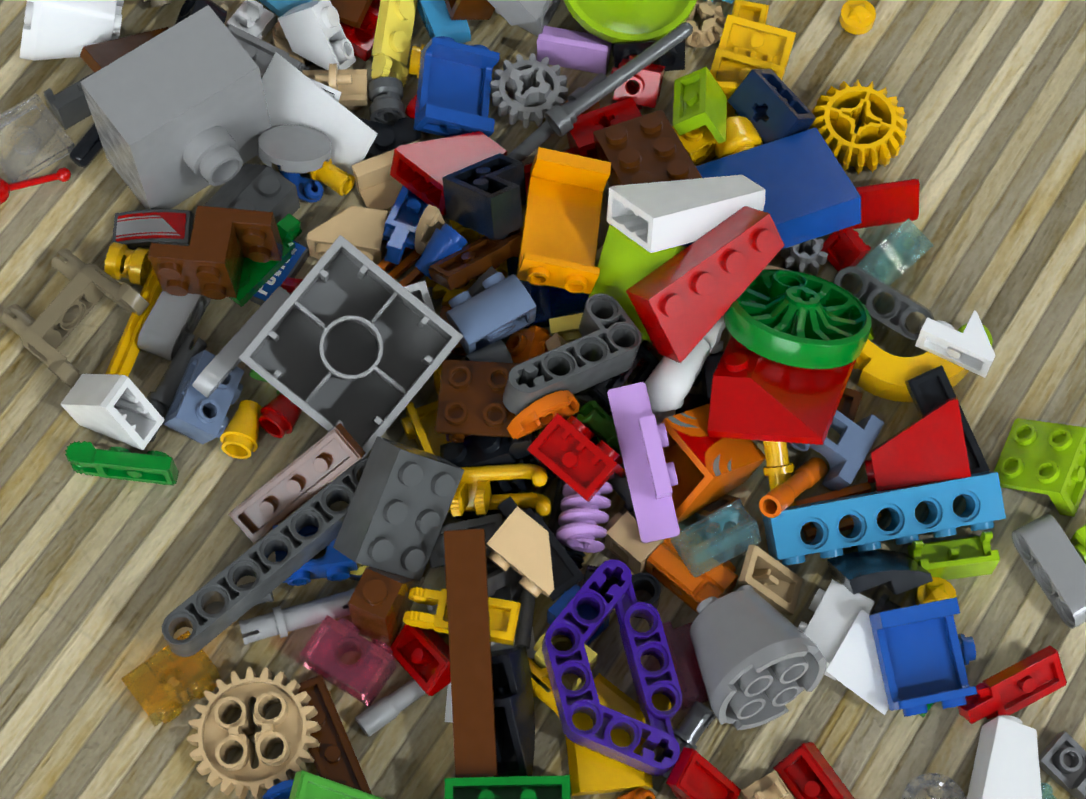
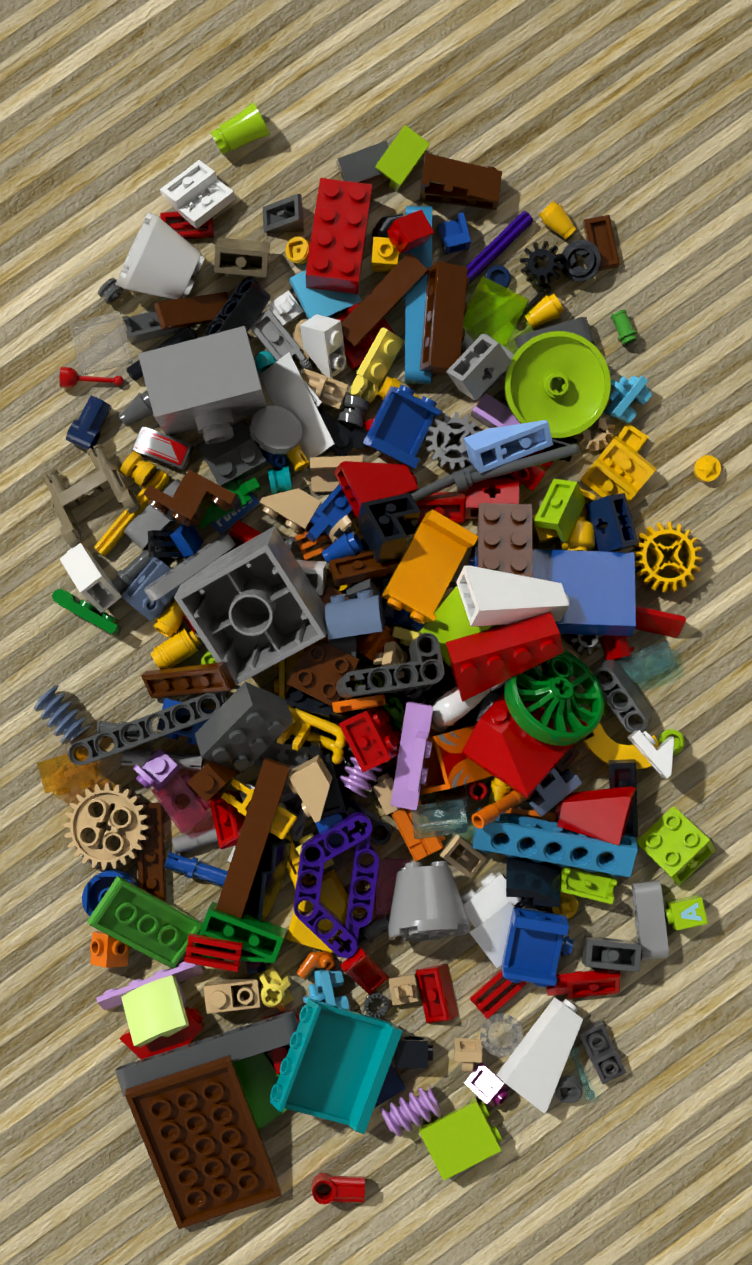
camera: 20 degrees right, 20 degrees up
(16, 73) = (110, 291): none -> dark grey bush
(42, 234) = (86, 430): none -> dark blue piece
(103, 194) = (137, 409): none -> dark grey cone
(129, 608) = (60, 716): none -> sand blue piece
(204, 327) = (152, 544): none -> black tile
(224, 319) = (187, 540): none -> blue slope
(263, 463) = (175, 649): none -> yellow head
(298, 622) = (157, 770): none -> medium lavender bracket
(322, 208) = (280, 480): none -> teal wheel
(405, 745) = (194, 868): none -> blue pin
(598, 56) = (506, 443): none -> light blue slope
(750, 489) = (469, 790): none -> red pin
(885, 780) = (481, 1005): none -> red tile
(1030, 628) = (611, 953): none -> dark grey brick

